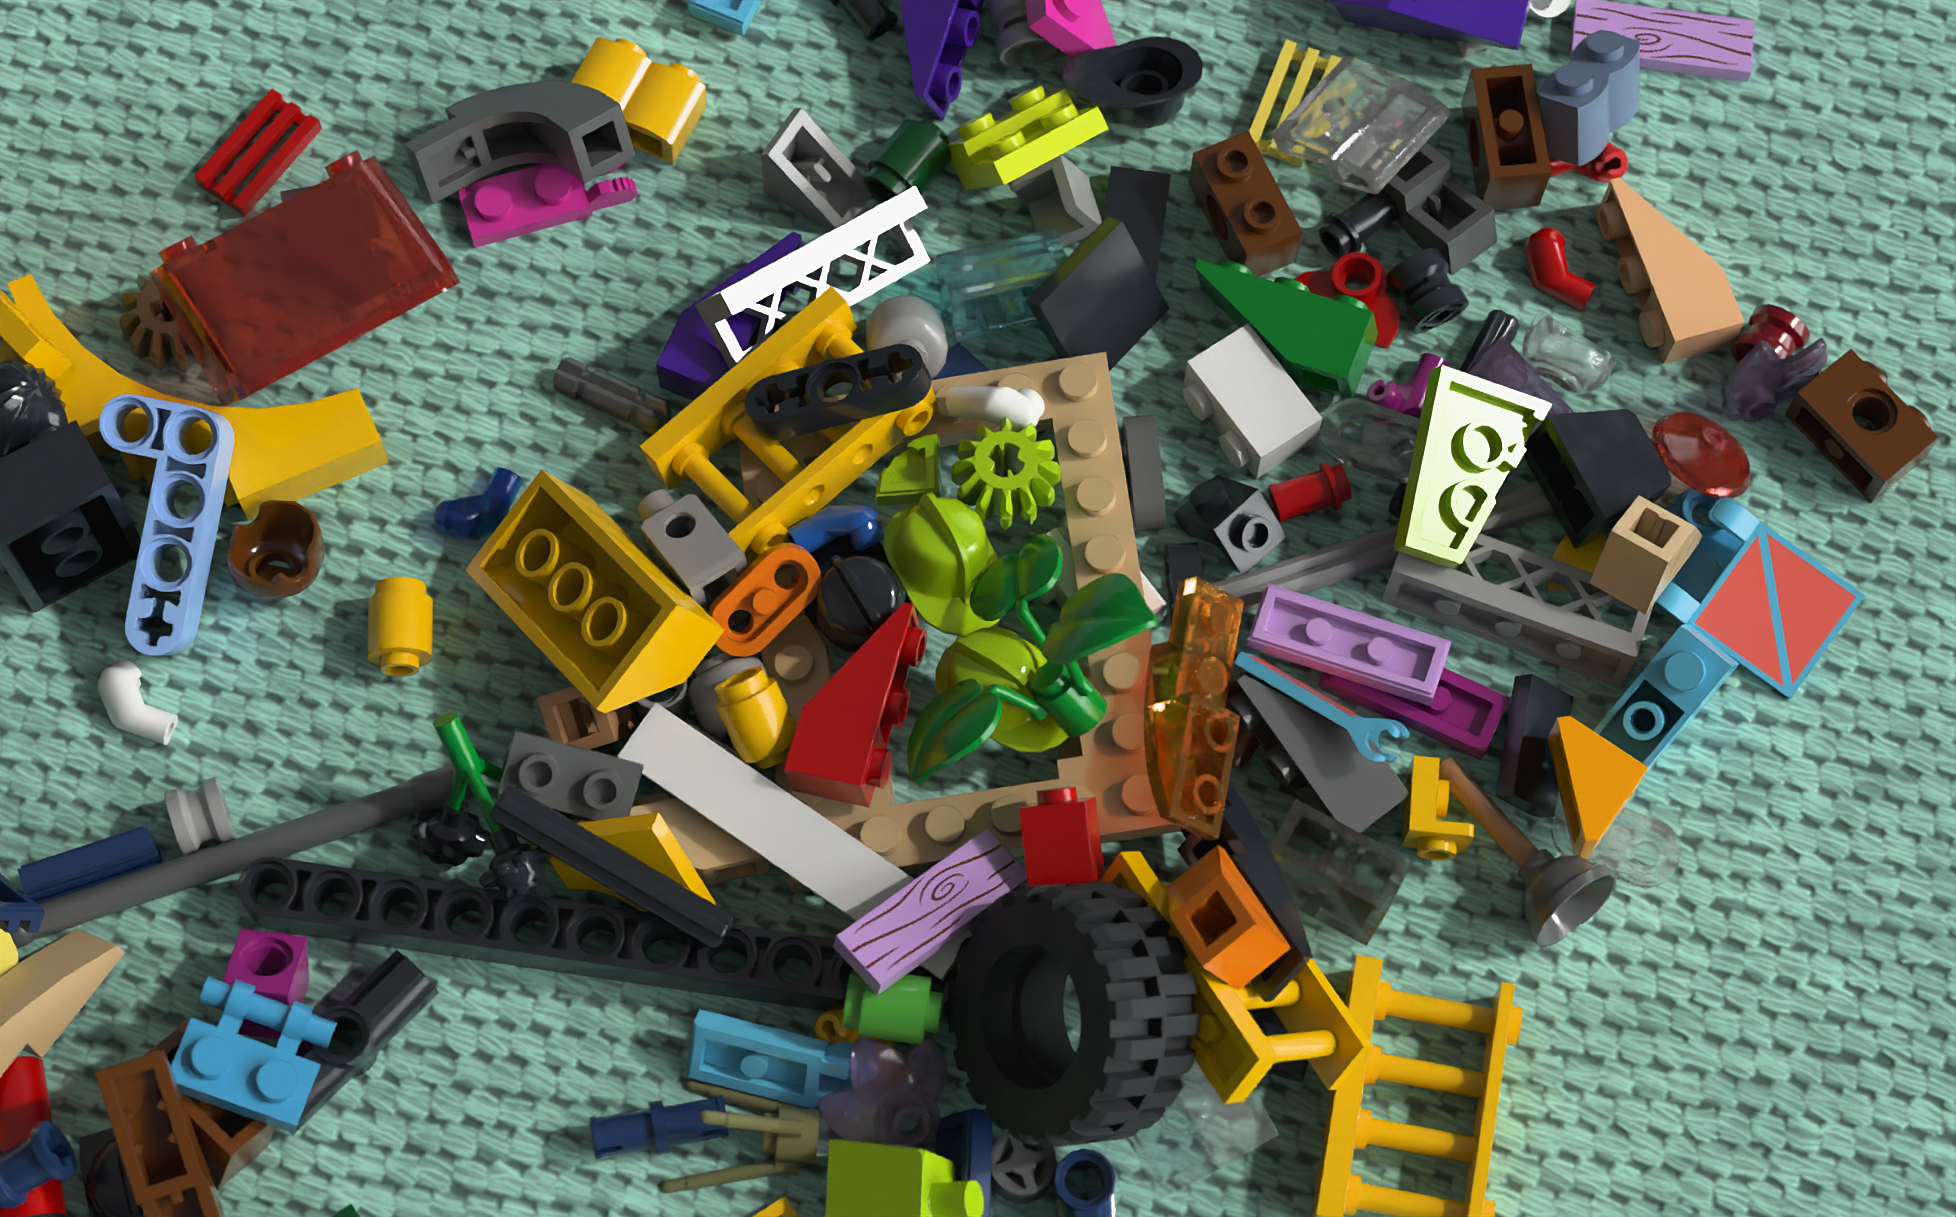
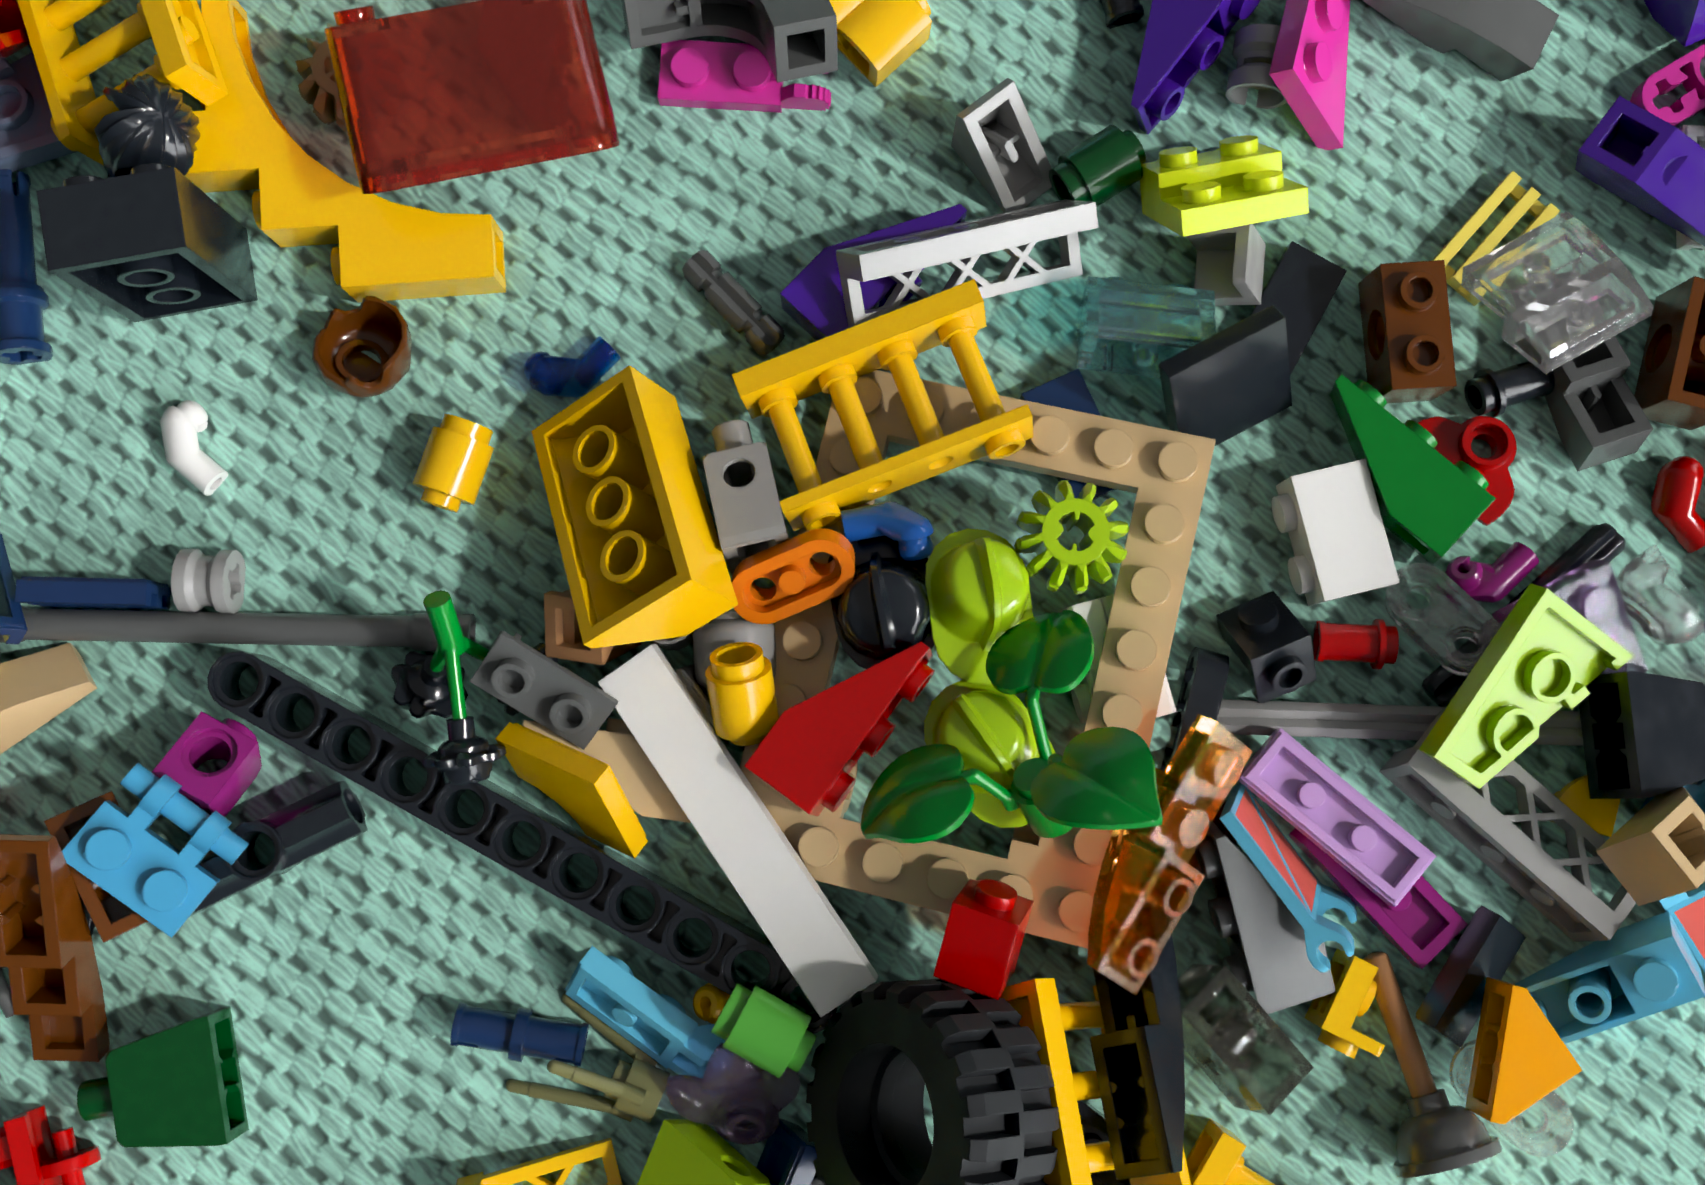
camera: 20 degrees right, 15 degrees up
(162, 524) = (236, 367): light blue beam -> none
(611, 867) = (548, 796): black axle -> none
(799, 418) = (953, 419): black beam -> none
(912, 323) = (1028, 353): light grey head -> none
(912, 473) = (982, 497): lime tile -> none
(929, 912) = (832, 961): lavender tile -> none
(995, 403) = (1088, 462): white arm -> none
(1136, 81) = (1353, 164): black piece -> none
(1143, 472) = (1207, 565): dark grey beam -> none
(1224, 920) = (1106, 1096): orange slope -> none
(1427, 290) = (1550, 496): black wheel -> none

